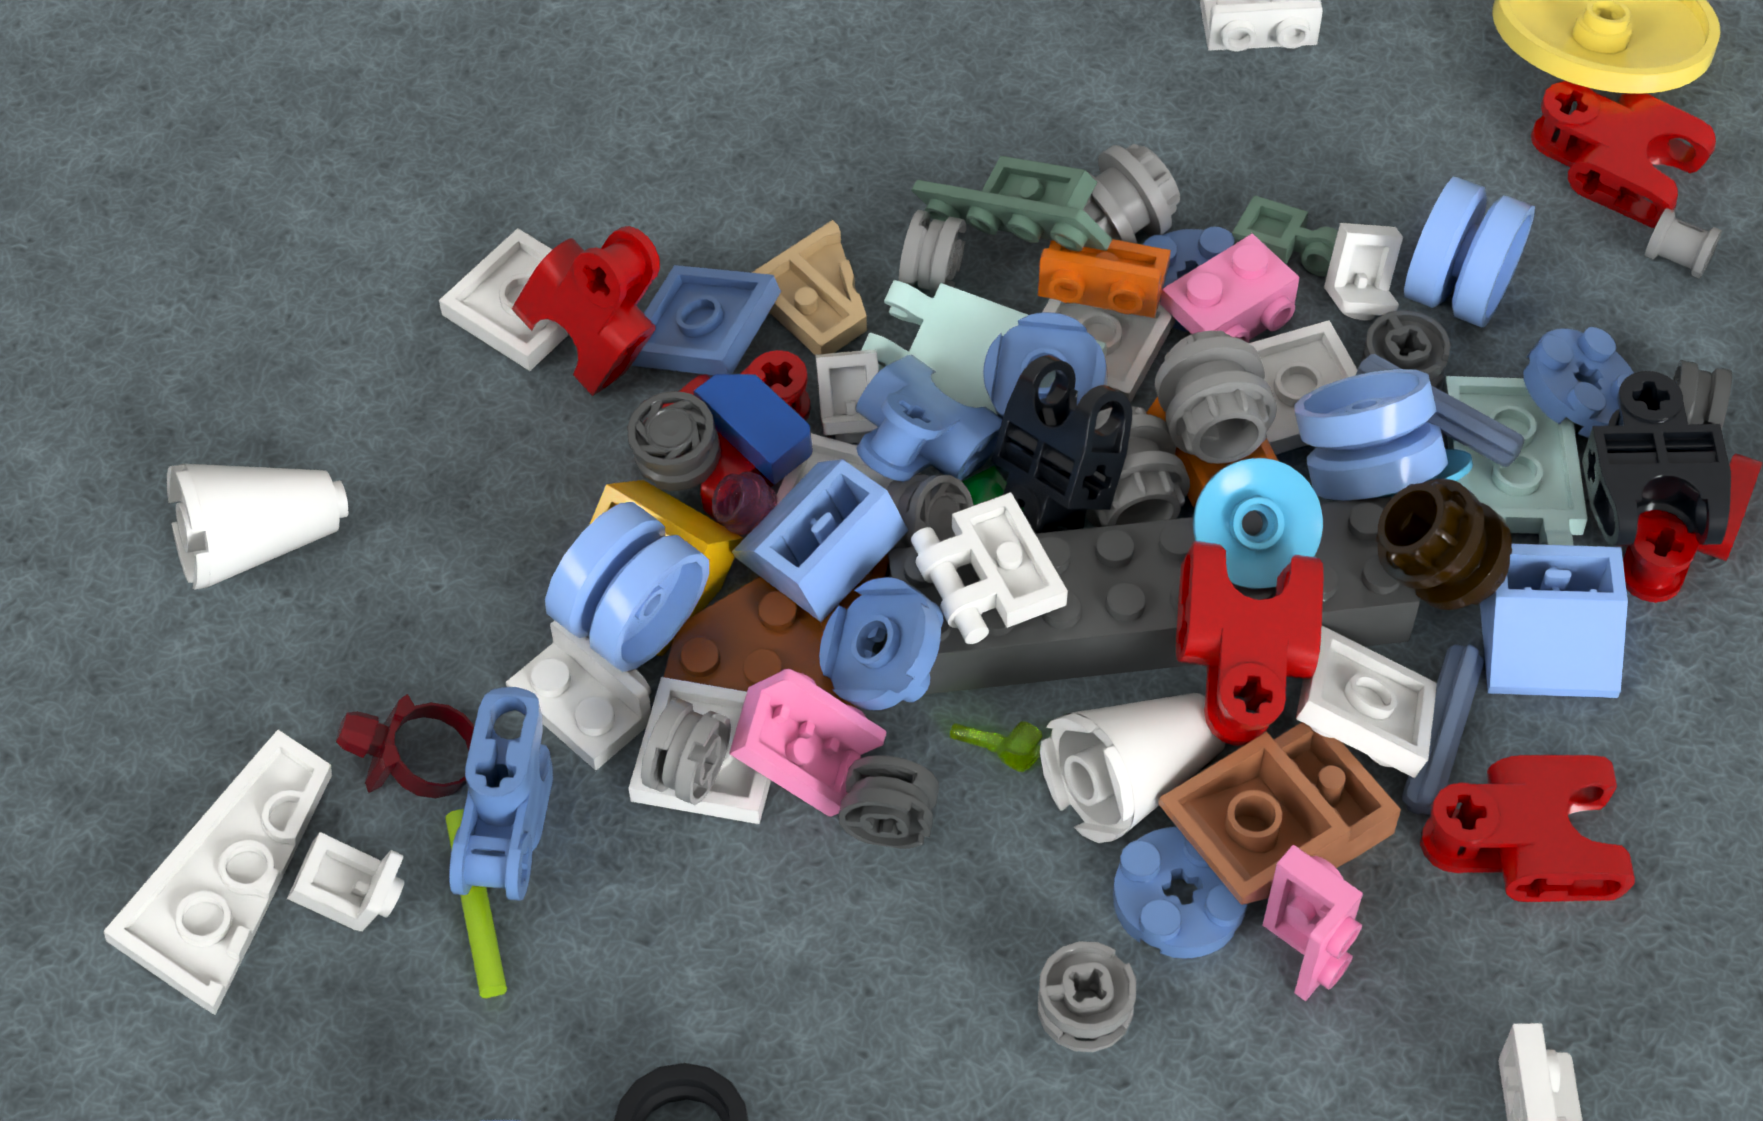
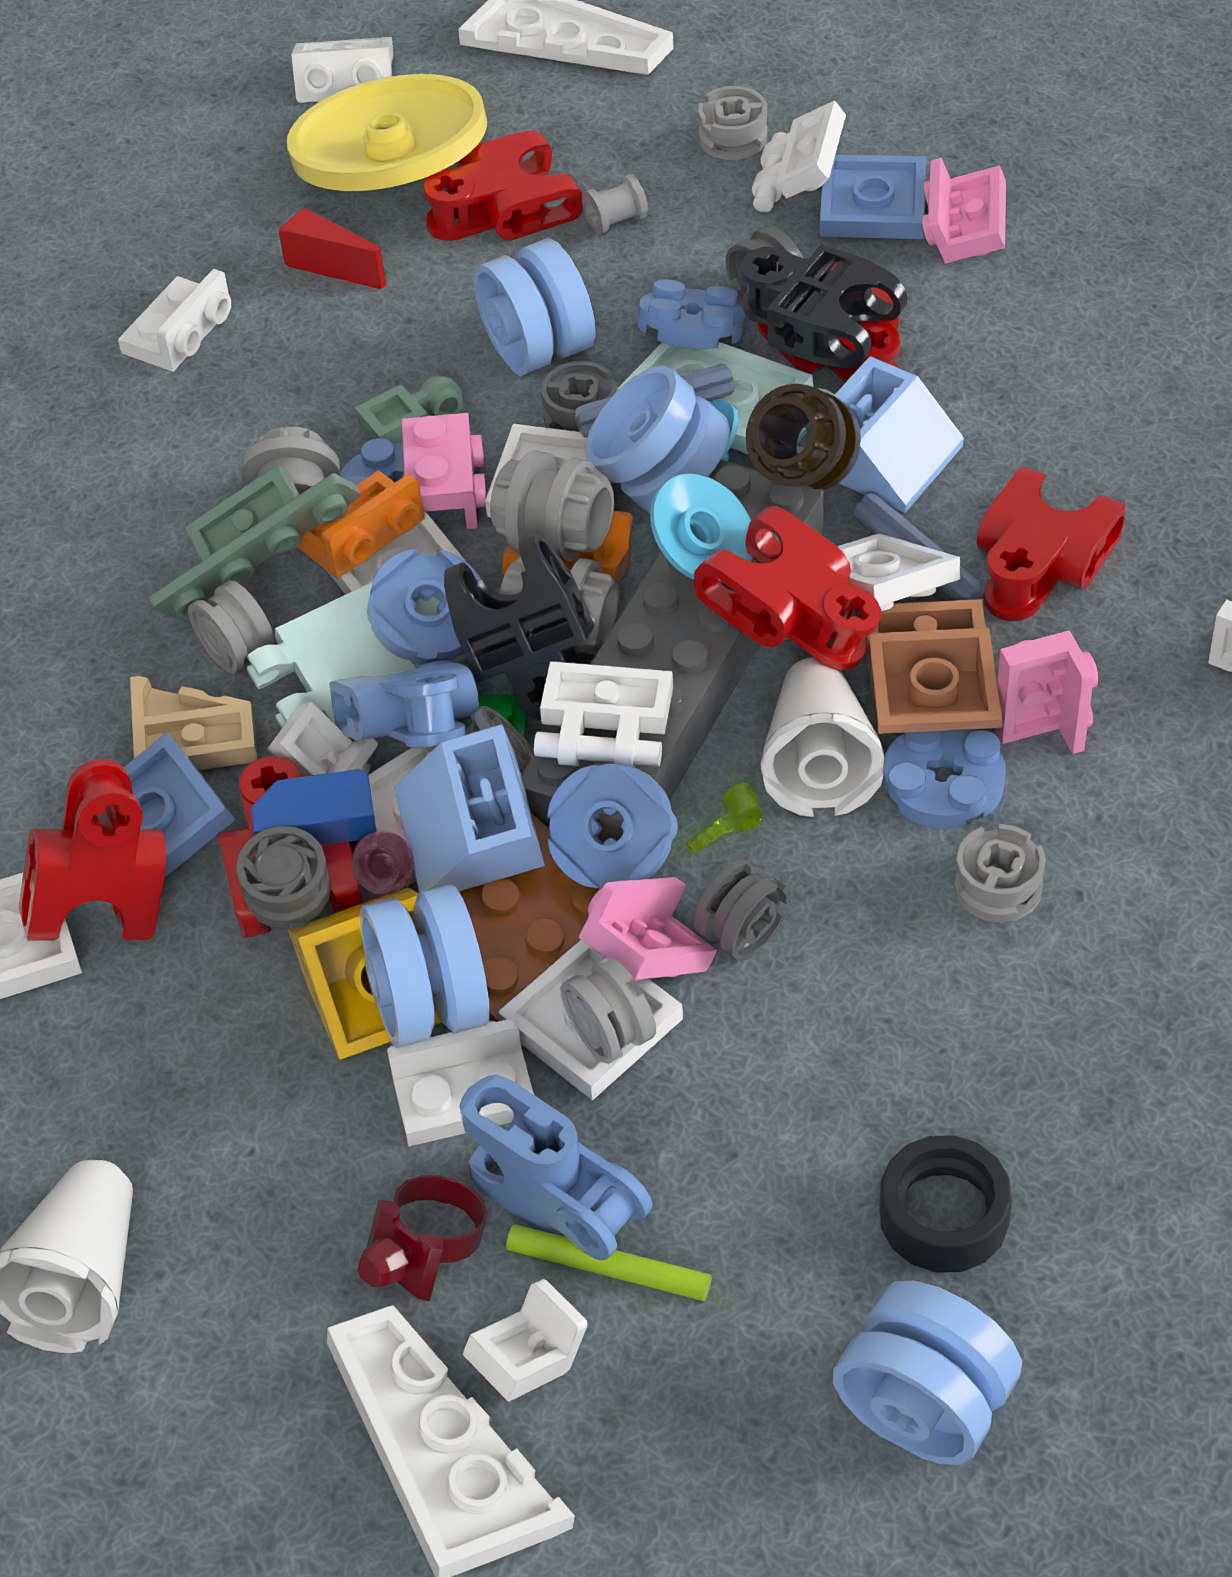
camera: 55 degrees left, 5 degrees down
(1363, 270) = (484, 382): white bracket -> none
(1427, 61) = (330, 250): none -> red slope

